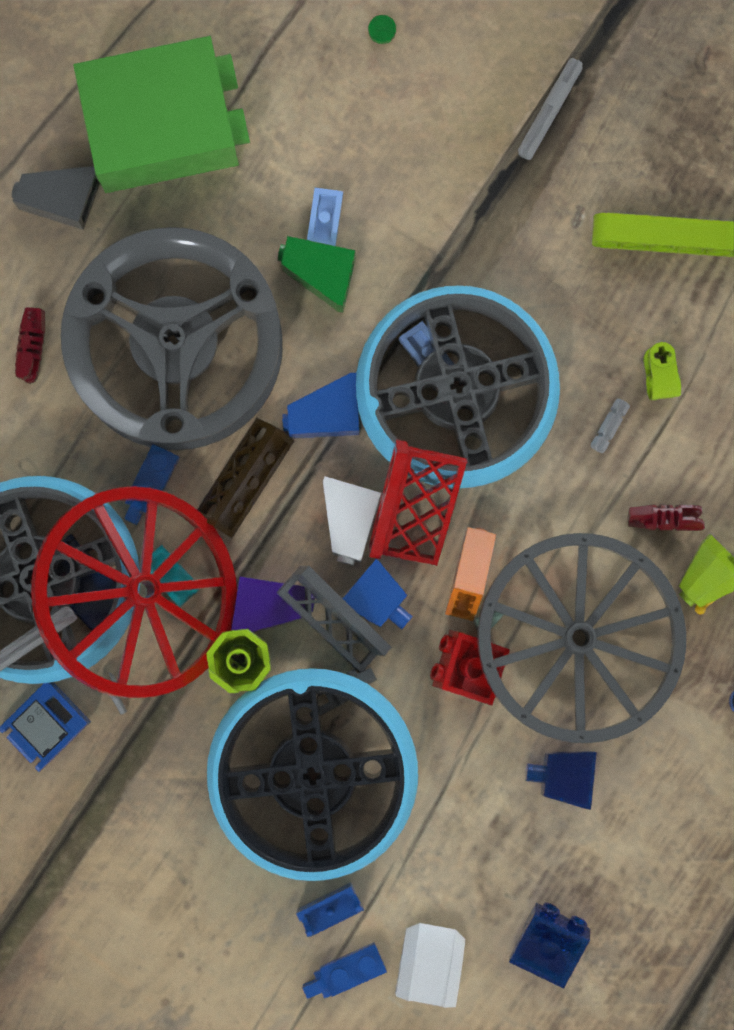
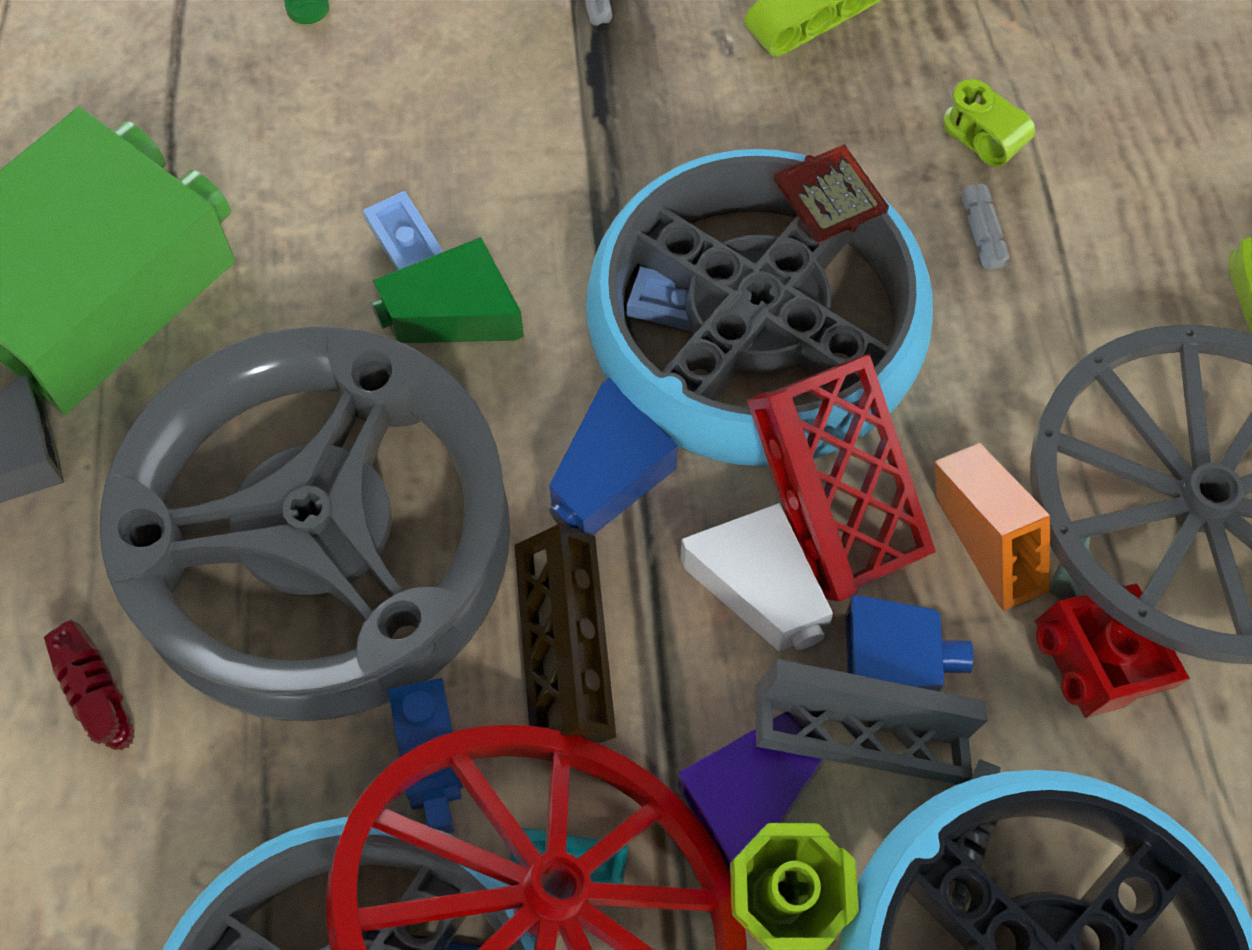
camera: 35 degrees left, 20 degrees down
(529, 361) = (830, 193): none -> piece
(666, 517) = (1159, 276): dark red hinge -> none

